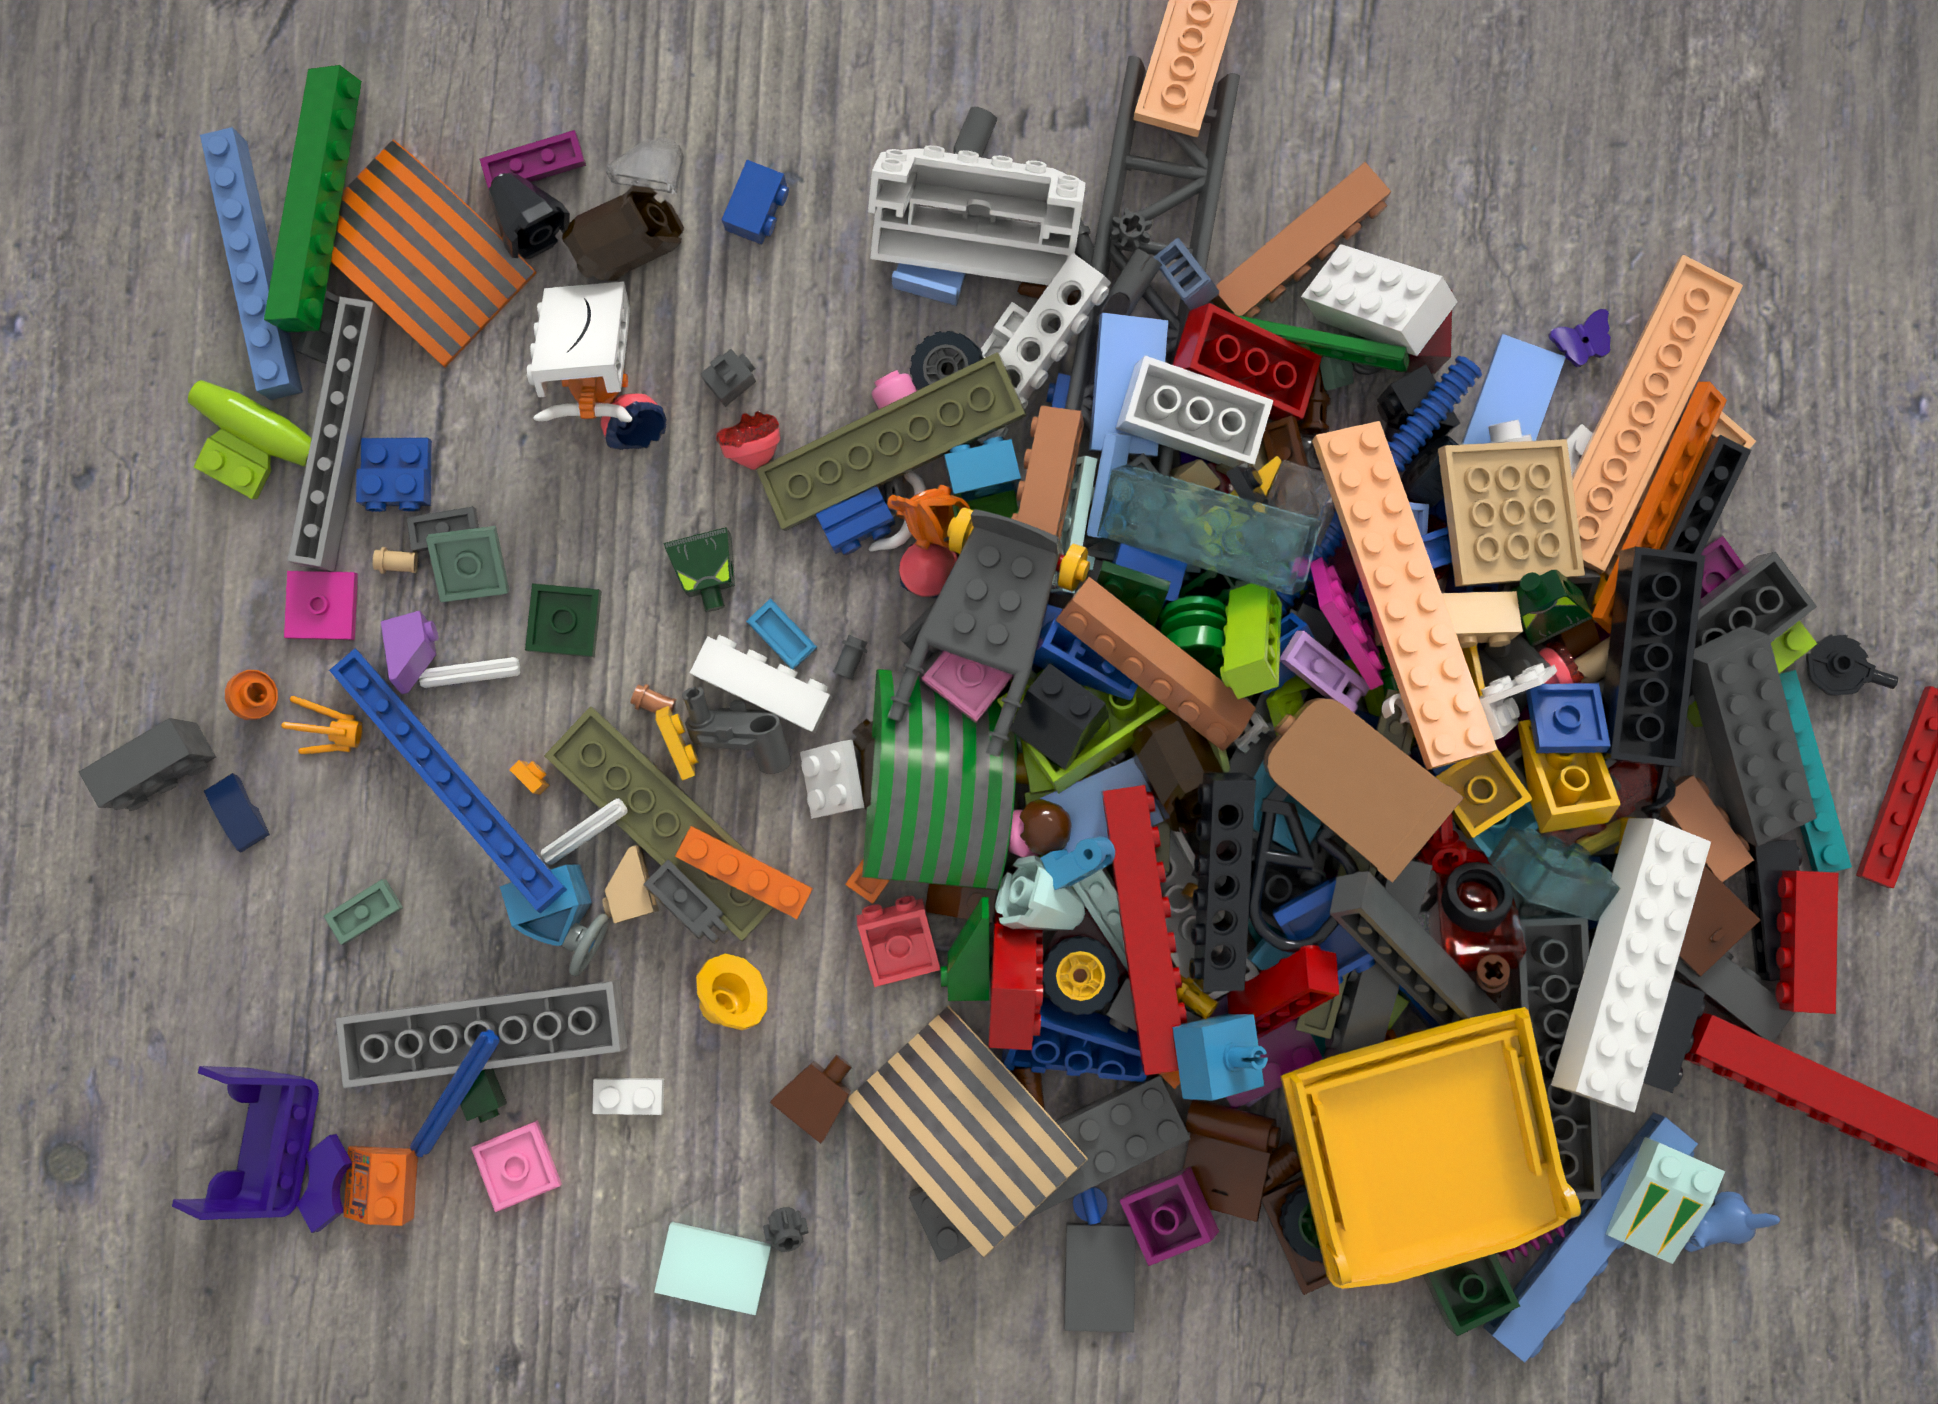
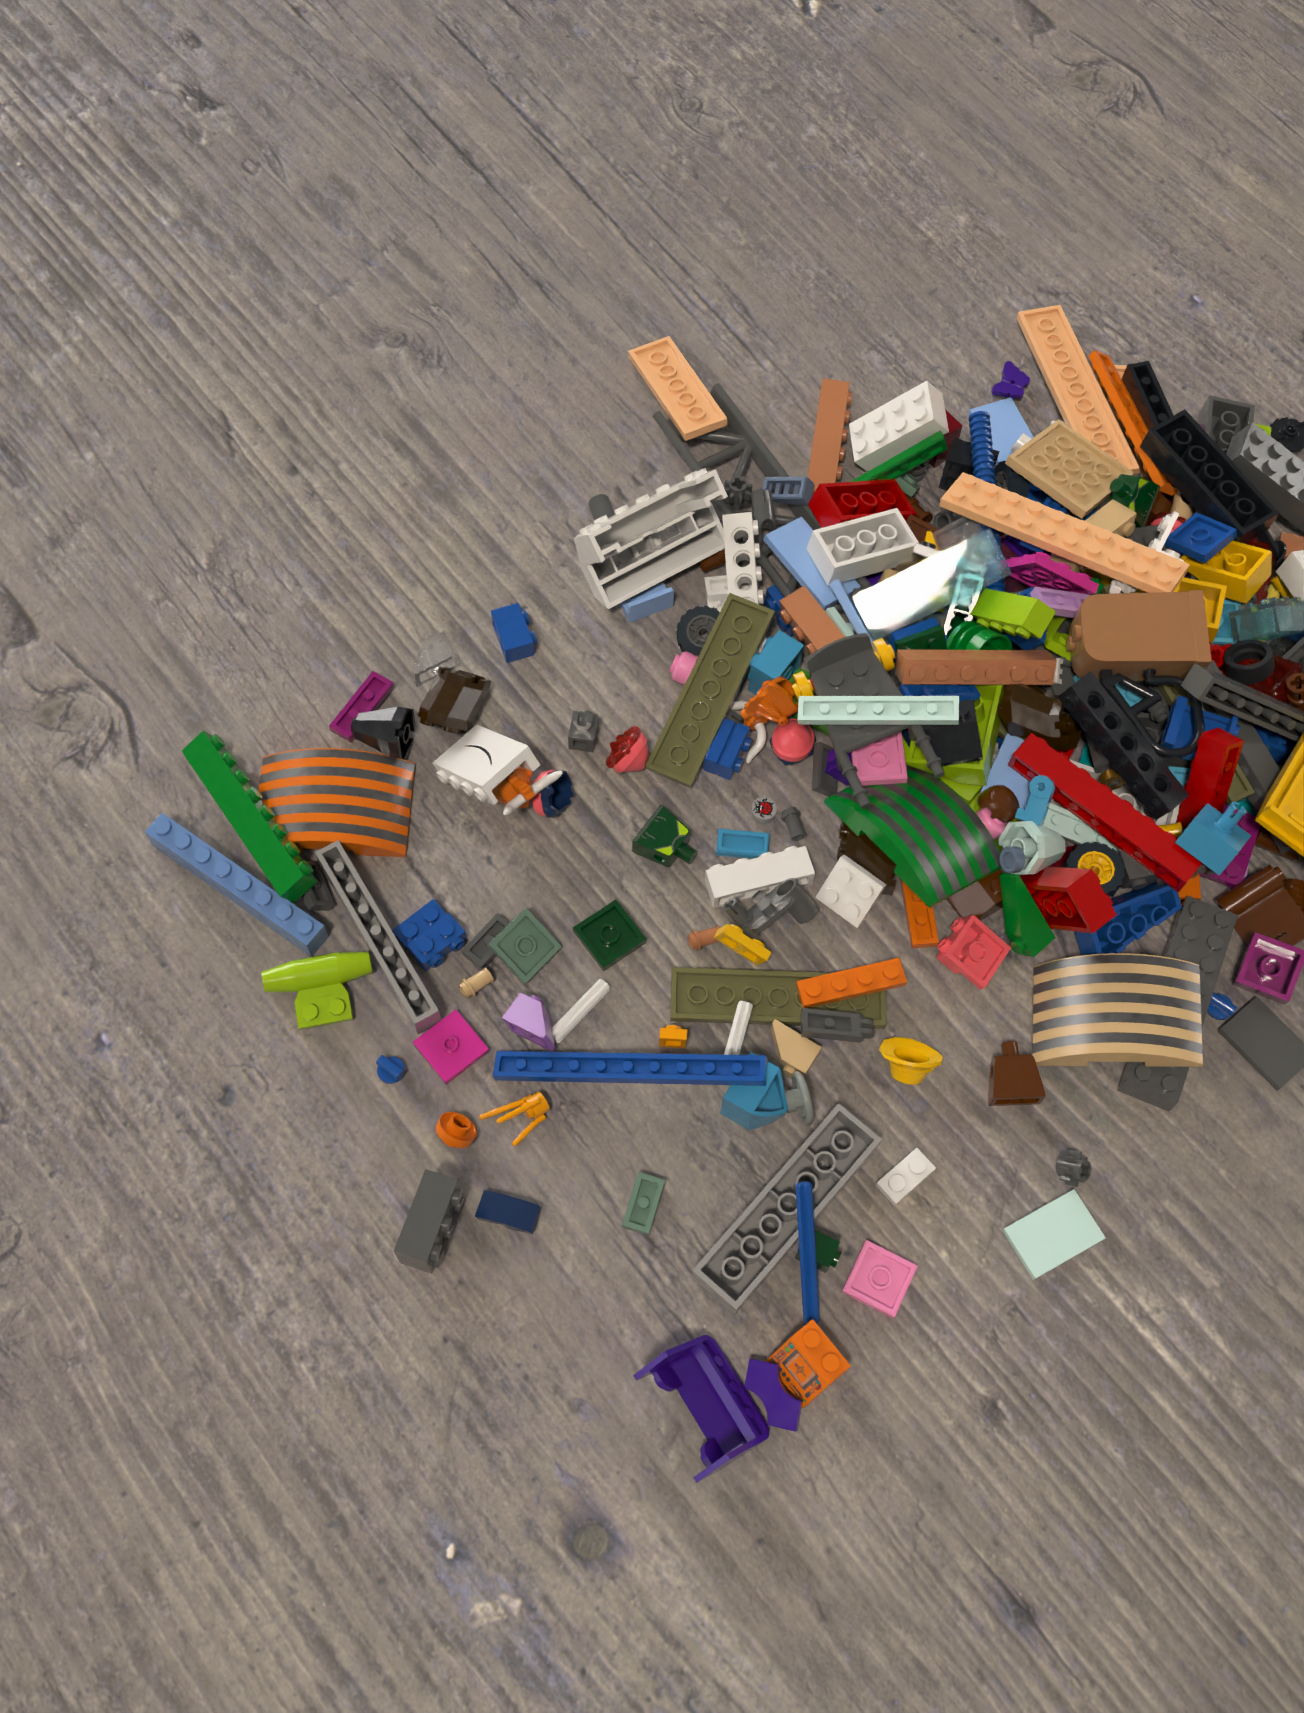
camera: 45 degrees left, 20 degrees down
(246, 580) = (390, 1069): none -> blue plate
(836, 616) = (764, 810): none -> tile
(989, 634) = (878, 710): none -> light aqua plate
(1002, 895) = (1012, 859): none -> sand blue tile

